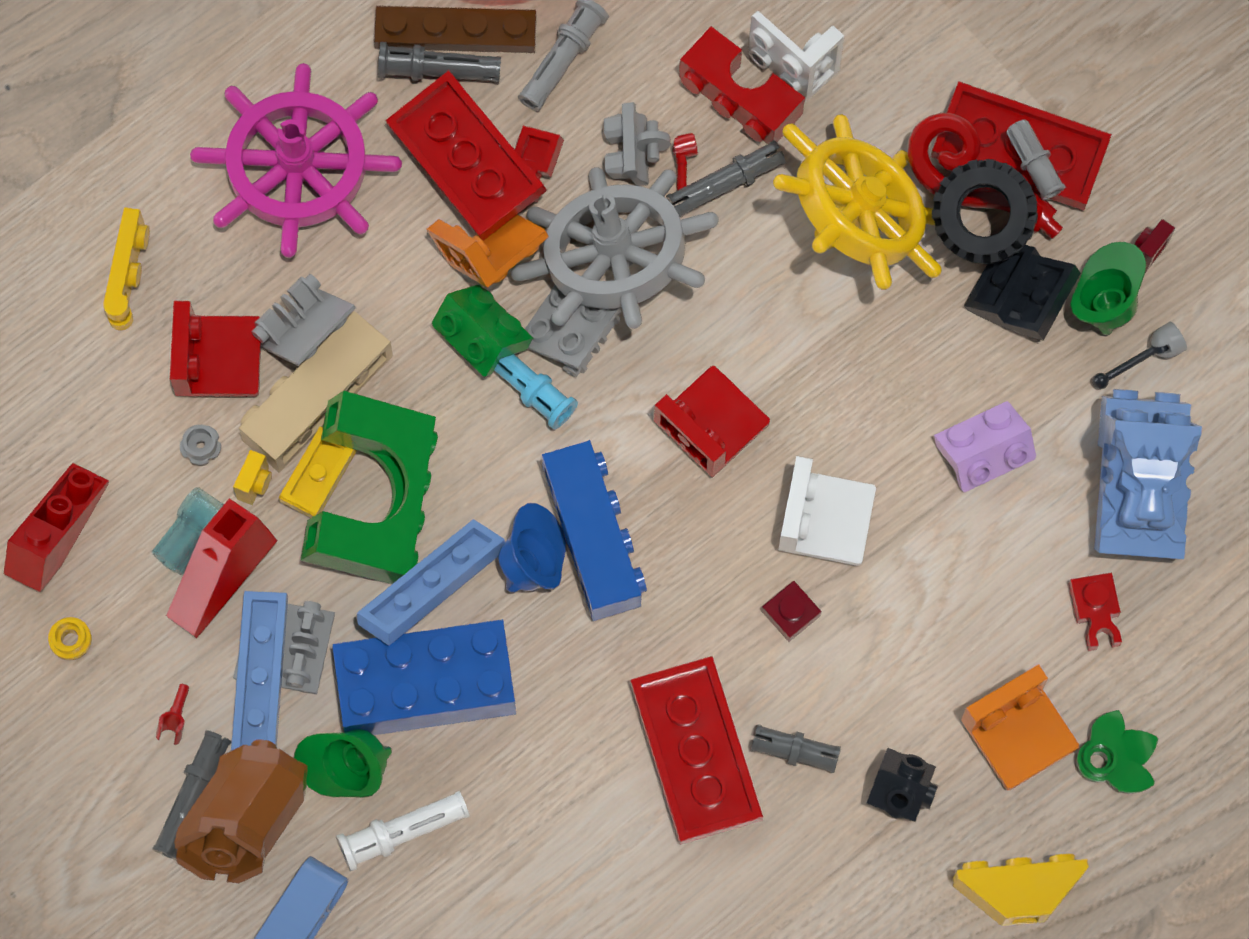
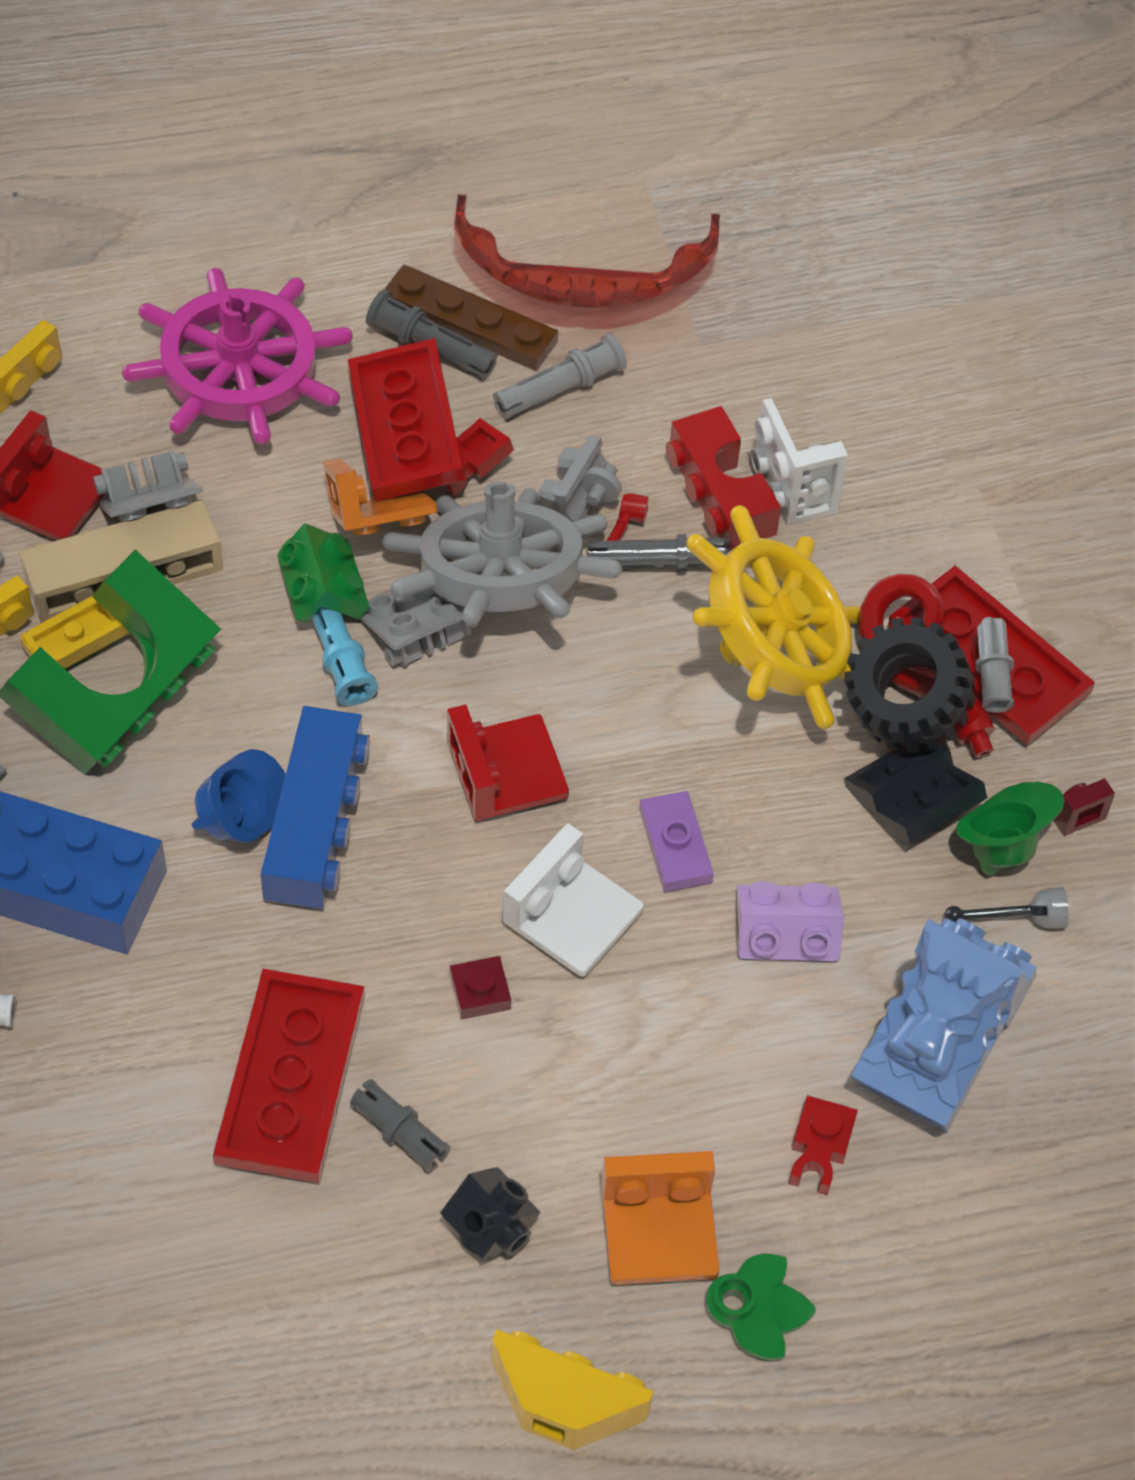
camera: 25 degrees right, 15 degrees down
(430, 582) = (110, 774): medium blue plate -> none
(869, 420) = (676, 841): none -> medium lavender plate

